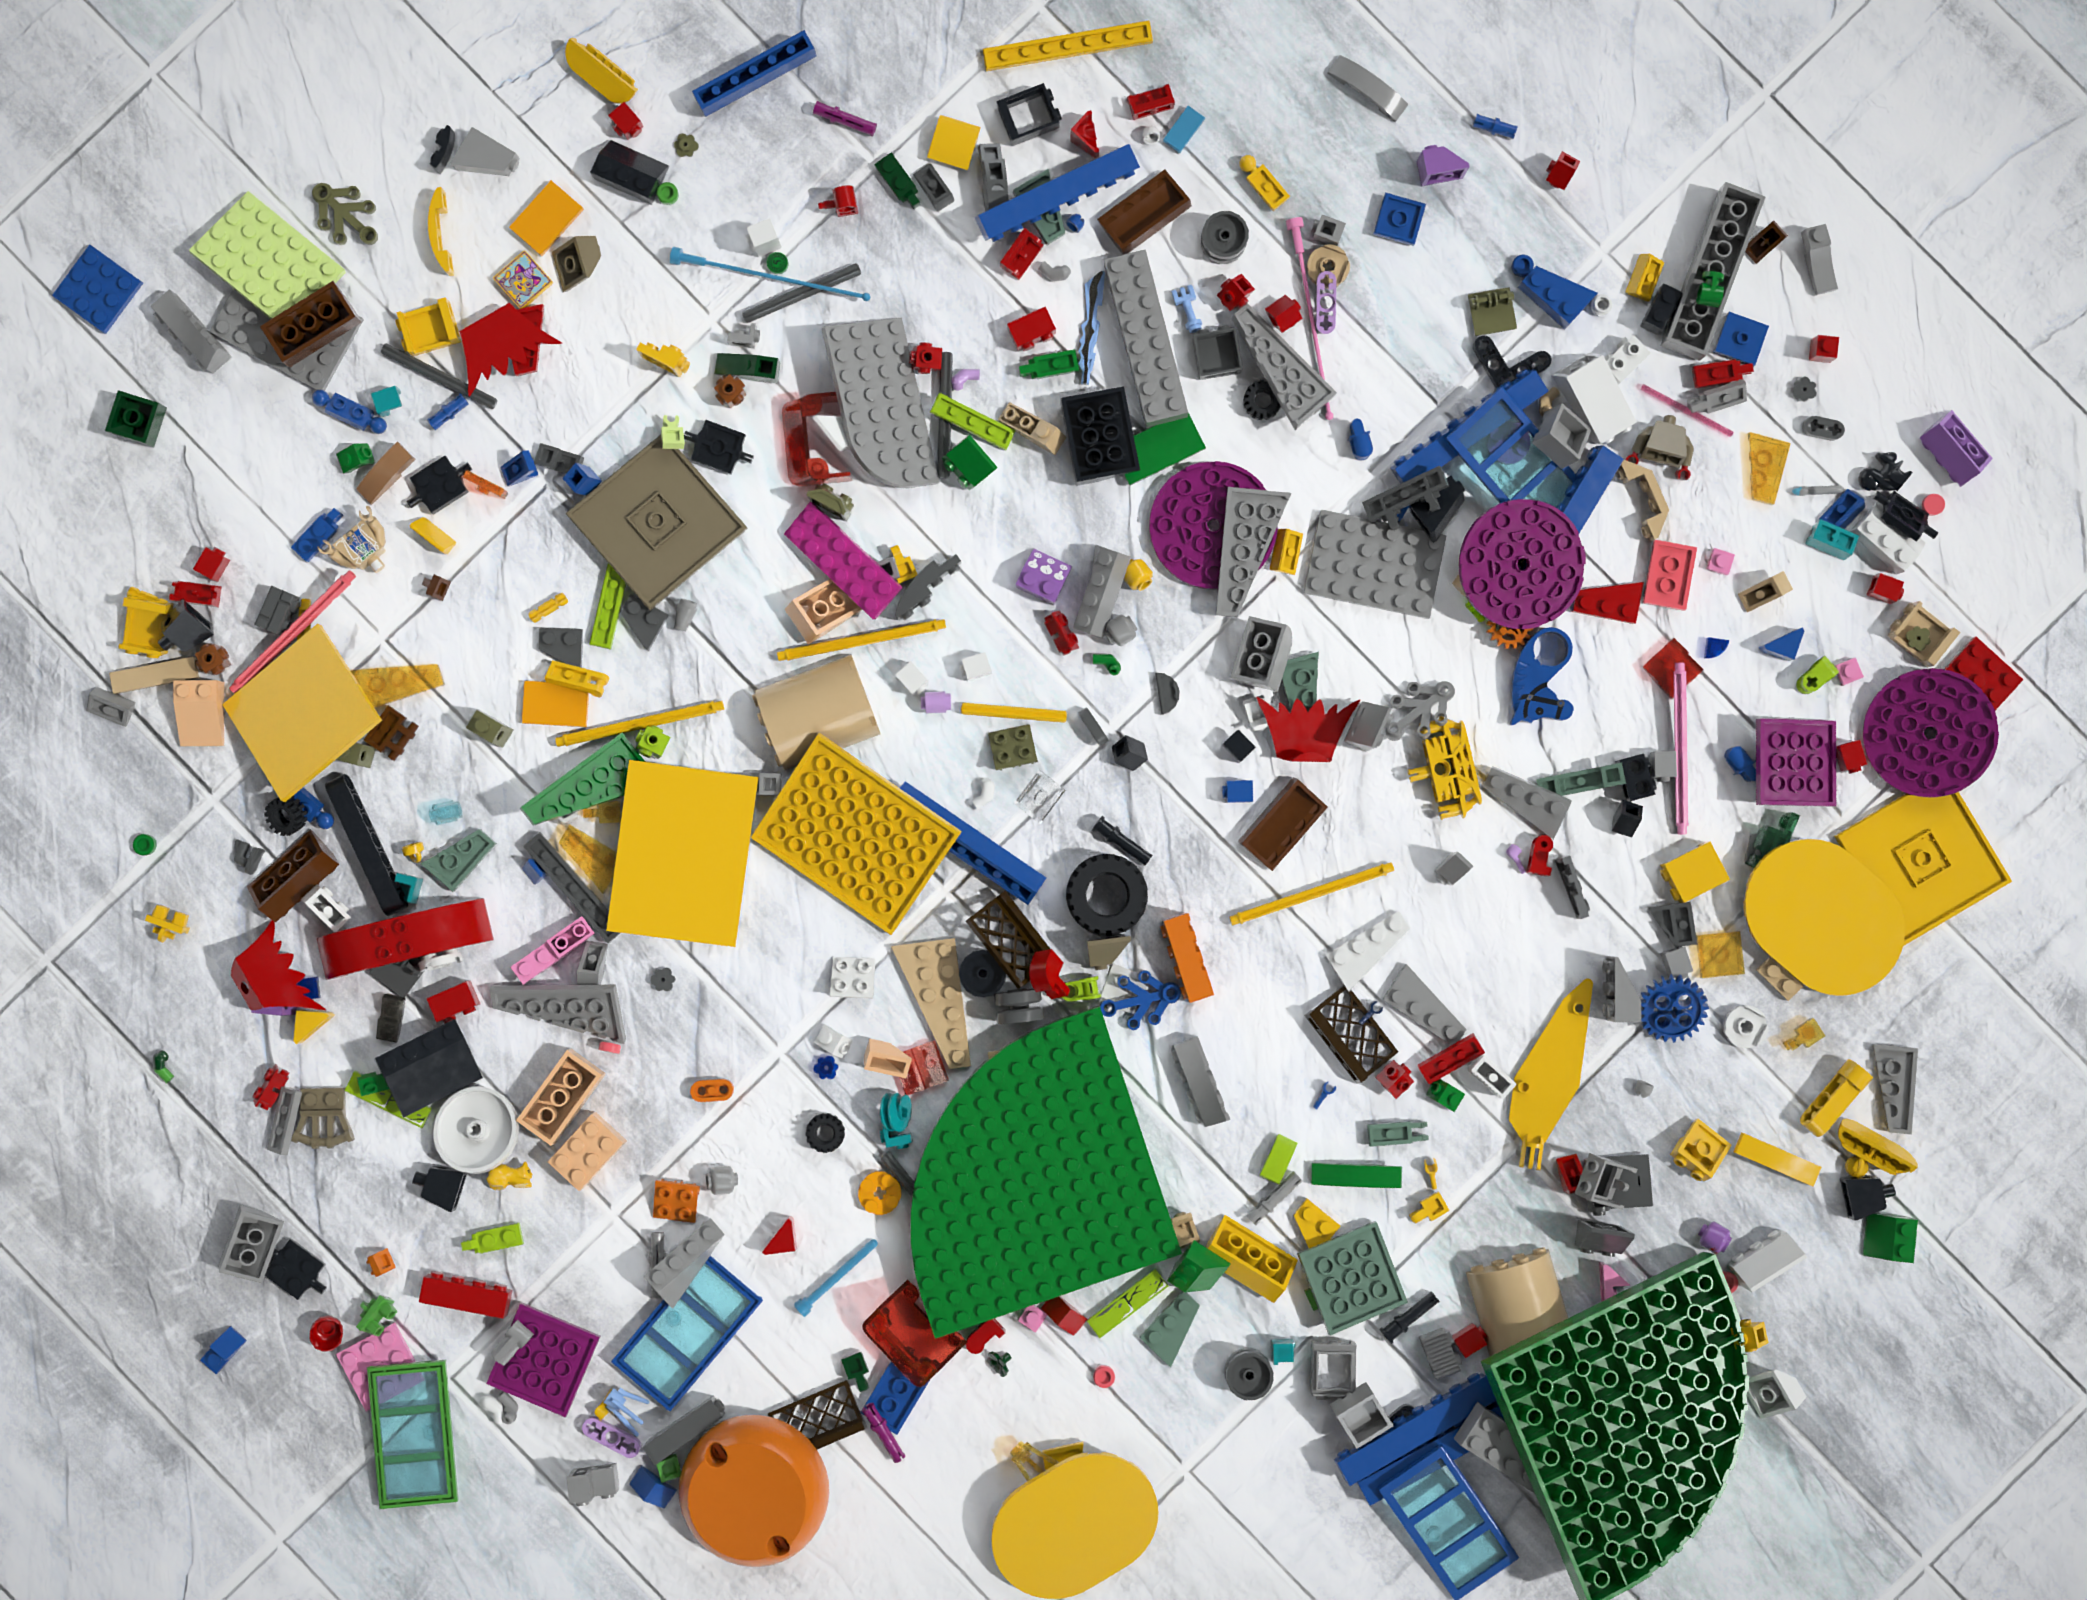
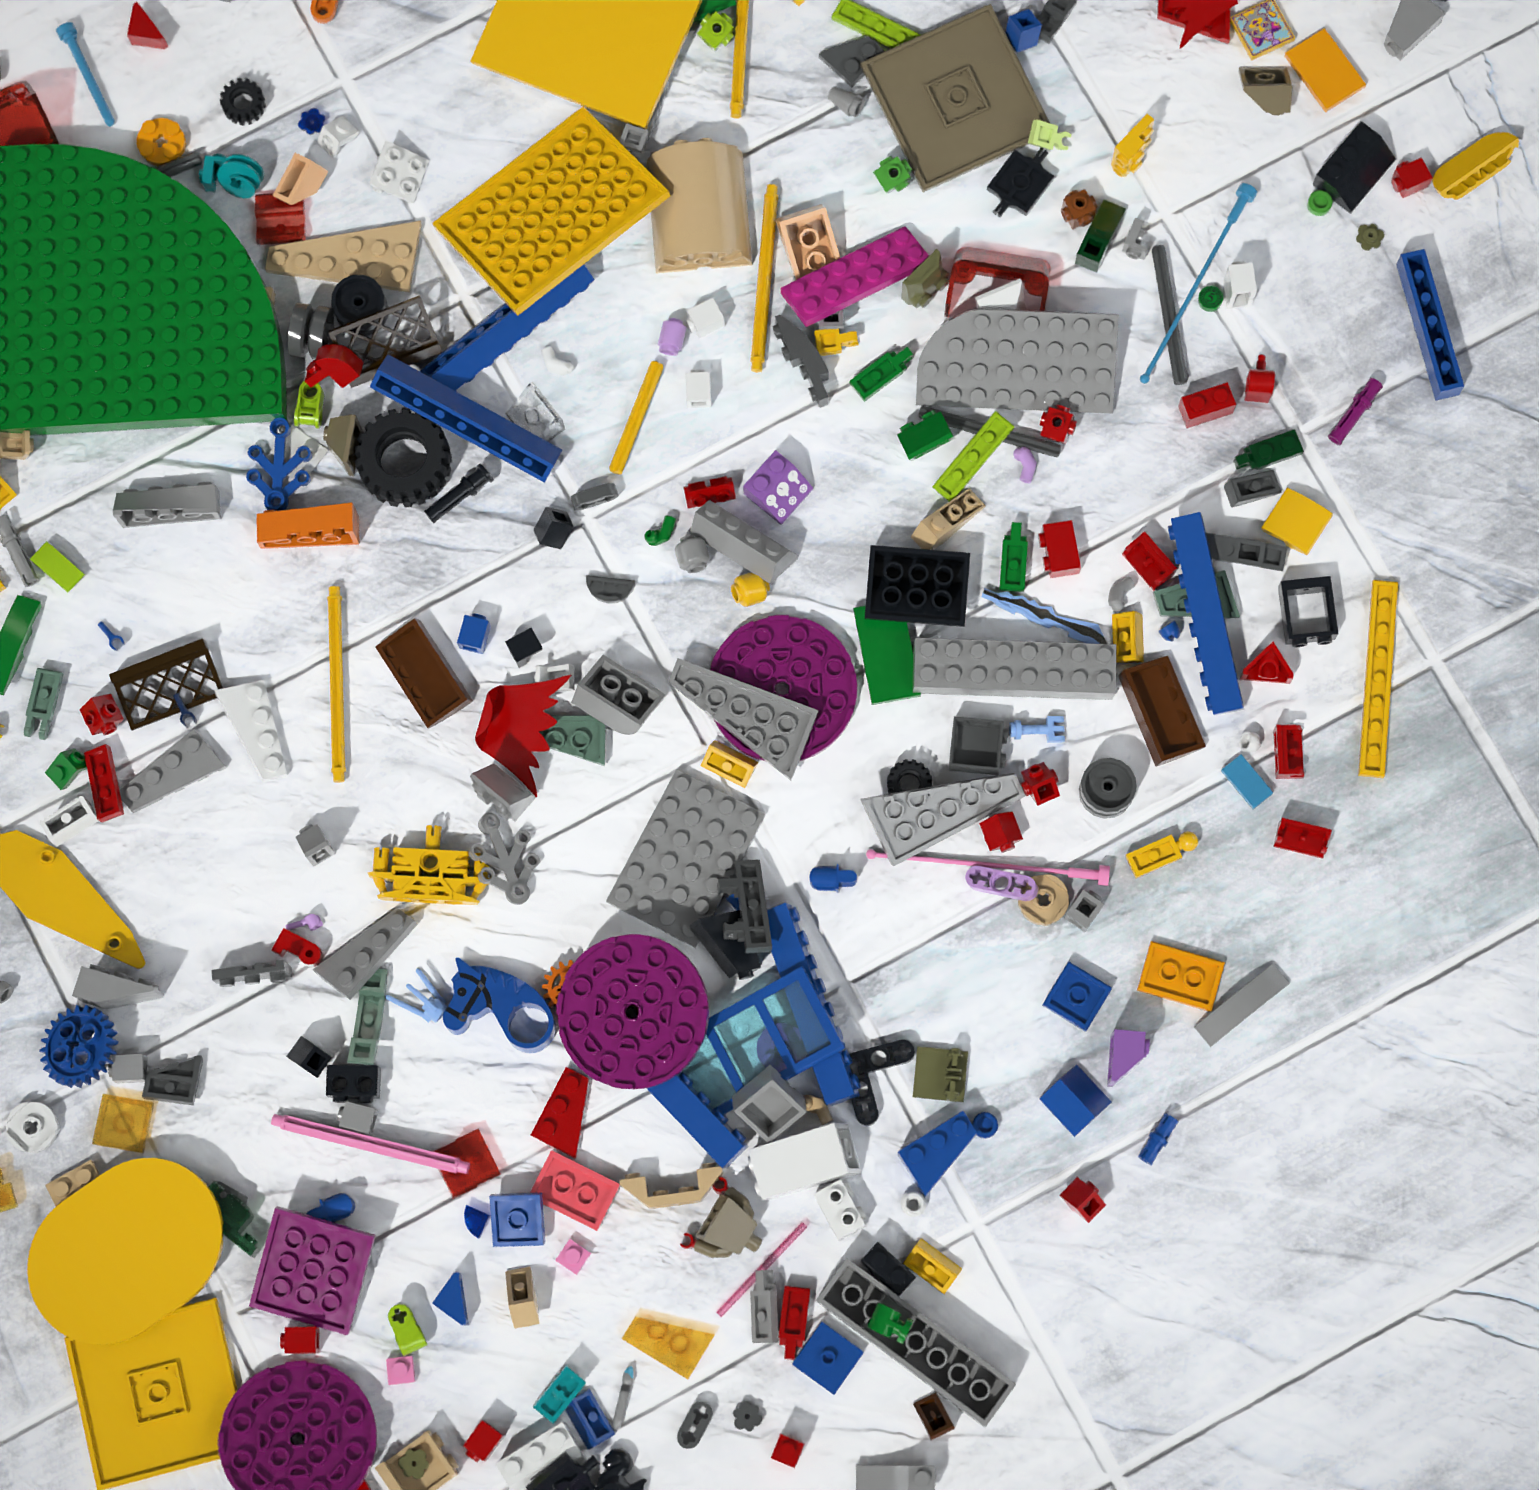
camera: 110 degrees right, 10 degrees down
(748, 551) = (891, 183): none -> bright green brick
(874, 240) = (1207, 405): none -> red brick
(920, 518) = (881, 373): none -> green hinge
(1012, 747) = (597, 404): olive hinge -> none
(1061, 850) = (465, 418): none -> blue brick
(1089, 256) = (1128, 637): none -> yellow slope
(1219, 73) = (1302, 838): none -> red hinge
(1358, 142) = (1180, 976): none -> light orange tile
(1482, 198) = (1075, 1100): none -> blue slope
(1557, 732) = (433, 1007): none -> light blue plant
(1694, 872) = (224, 1118): yellow panel -> none
(1707, 612) = (517, 1219): none -> plate

